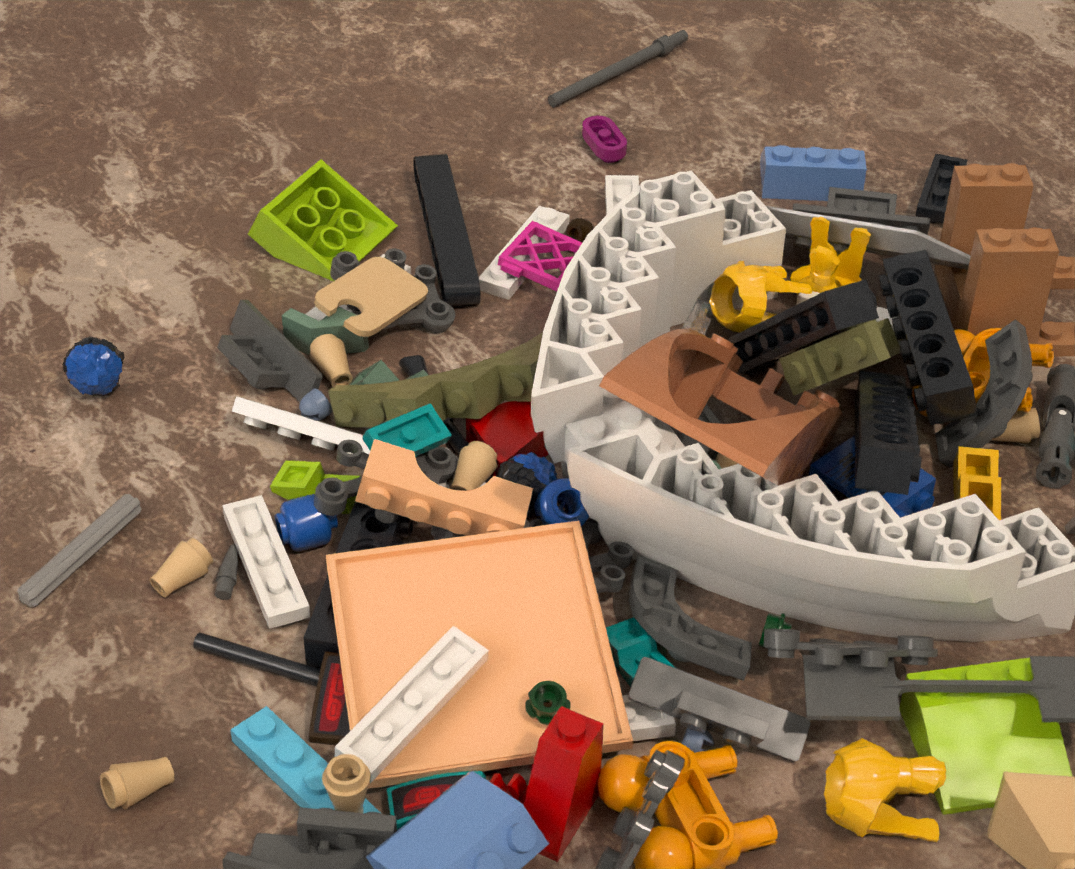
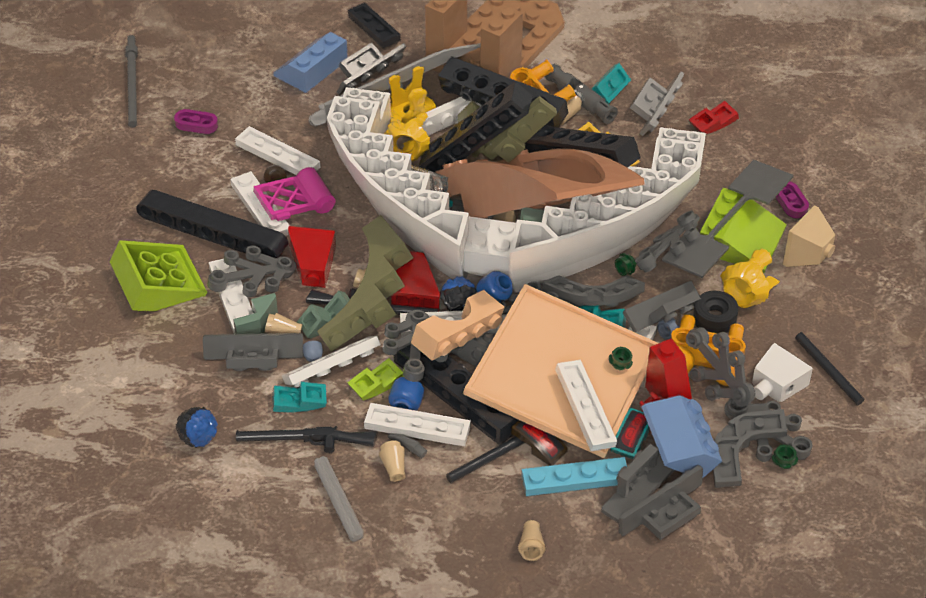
camera: 55 degrees left, 5 degrees up
(183, 484) = (311, 435): none -> black piece
(226, 433) = (305, 398): none -> teal slope
(346, 782) = (619, 451): tan cone -> none
(378, 290) = (255, 276): tan piece -> none
(416, 431) = (404, 315): teal plate -> none
(474, 466) = (434, 306): tan cone -> none
(476, 327) = (312, 253): none -> red slope
(784, 762) = (716, 301): none -> black tyre
(1008, 382) = (562, 86): dark grey plate -> none

